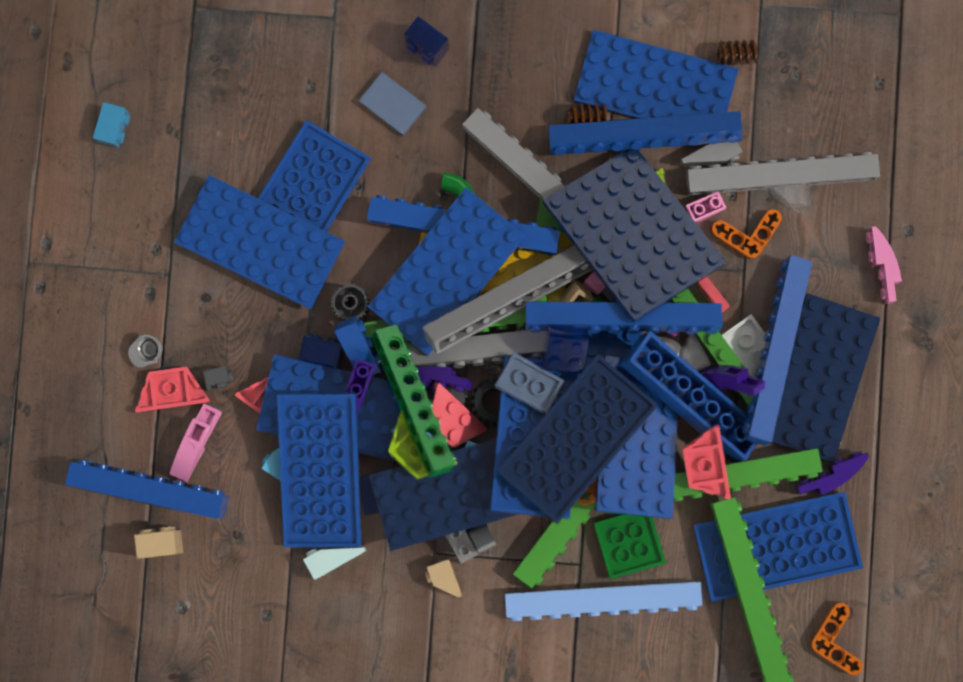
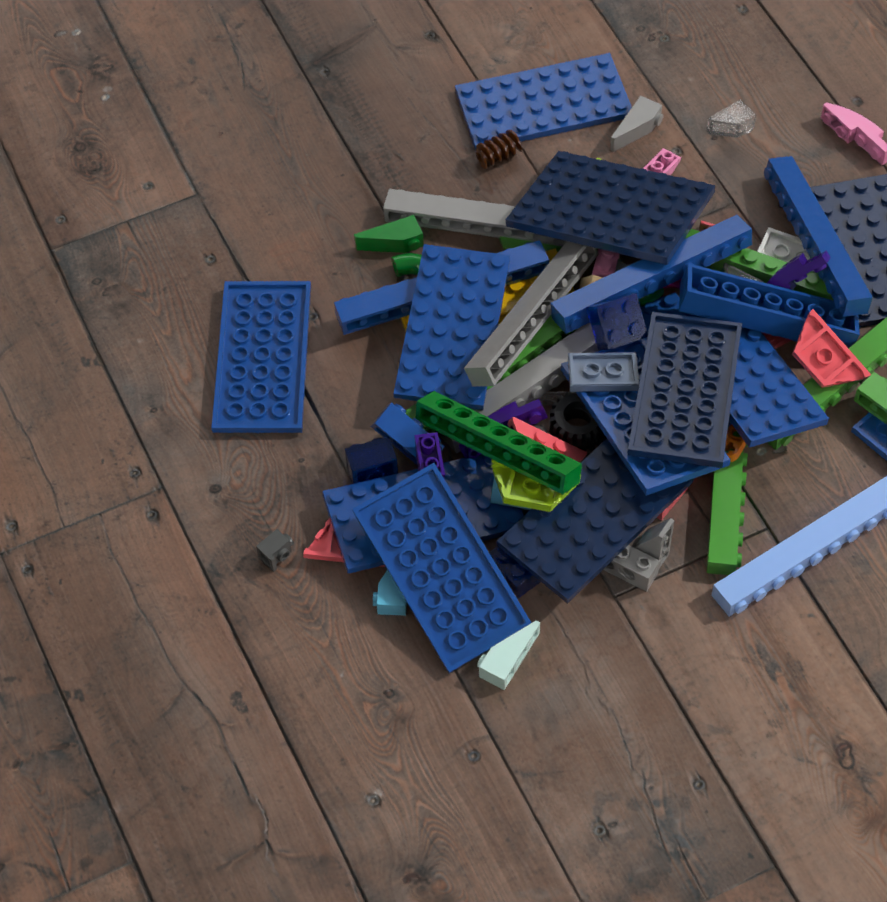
camera: 30 degrees left, 25 degrees down
(111, 125) = (22, 382): dark azure brick -> none
(145, 351) = (180, 562): light grey hat -> none
(151, 491) = (264, 690): blue brick -> none
(153, 543) = (310, 736): tan brick -> none
(170, 389) = (230, 588): coral wing -> none
(194, 442) = (288, 622): bright pink slope -> none
(260, 242) = (243, 404): blue plate -> none
(344, 296) = (367, 406): dark grey brick -> none
(392, 104) = (302, 232): sand blue tile -> none
(426, 41) = (303, 160): clear blue brick -> none
(443, 577) = (640, 609): tan slope -> none
(461, 153) = (395, 237): none -> green slope
(629, 544) = (802, 478): green plate -> none
(645, 133) = (561, 133): blue brick -> none
(737, 51) = (599, 39): reddish brown piece -> none
(754, 240) = (724, 173): orange beam -> none
(772, 173) = (693, 119): light grey brick -> none

